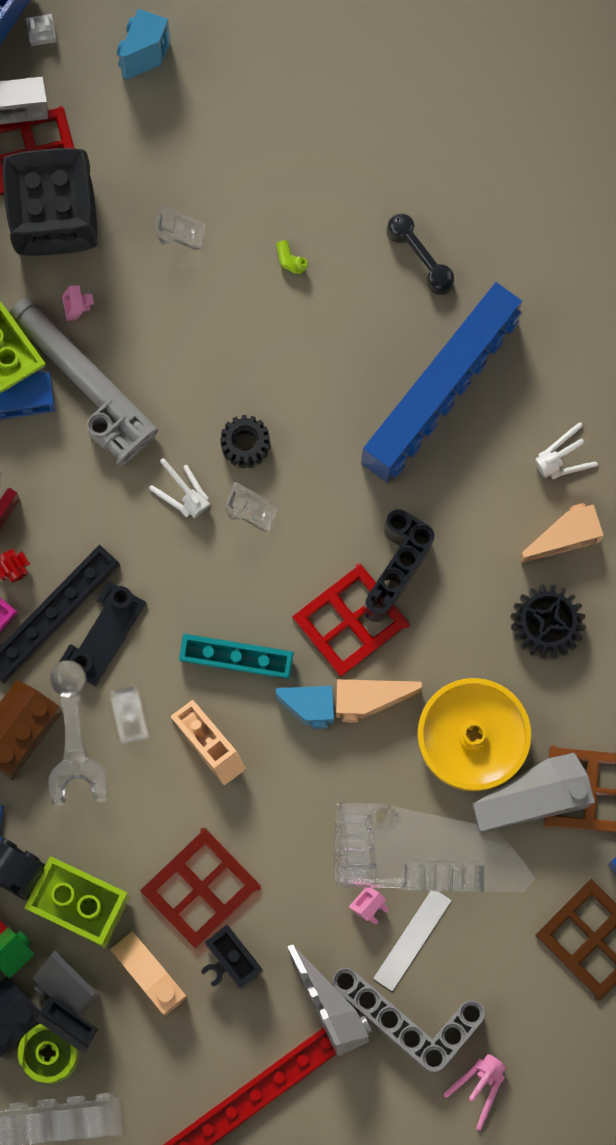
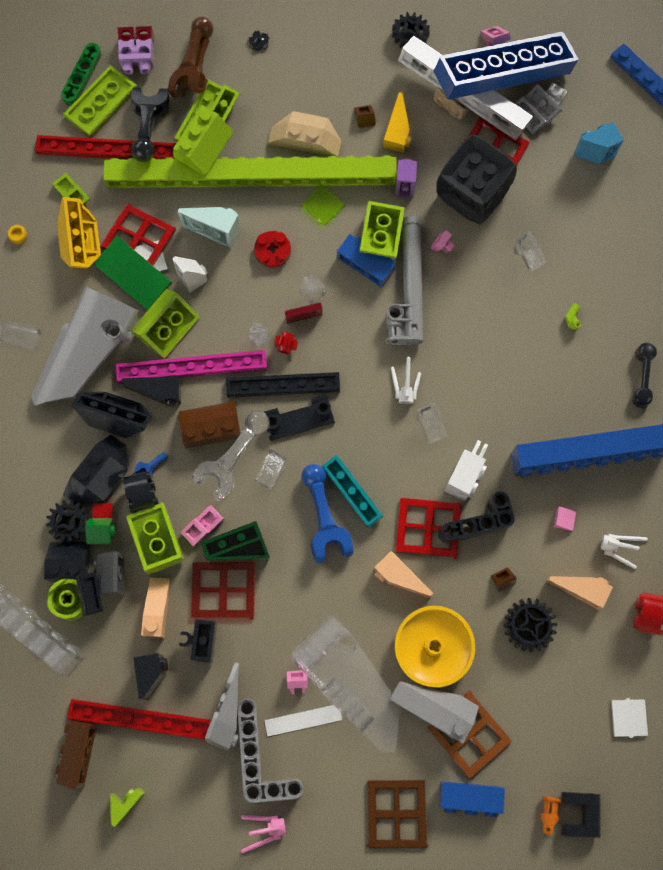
camera: 45 degrees right, 0 degrees up
(37, 58) = (540, 107): none -> light grey slope
(112, 843) = (202, 525): none -> bright pink slope
(170, 824) = (238, 543): none -> dark green wedge
(209, 742) = (296, 521): light nougat slope -> none
(210, 1042) = (149, 673): none -> black slope
(239, 426) = (461, 377): black tyre -> none
(252, 722) = (328, 532): none -> blue piece
(309, 704) = (365, 550): dark azure slope -> none
(337, 525) = (467, 471): none -> white brick
(477, 600) = (503, 579): none -> reddish brown slope
(480, 480) = (564, 519): none -> bright pink slope

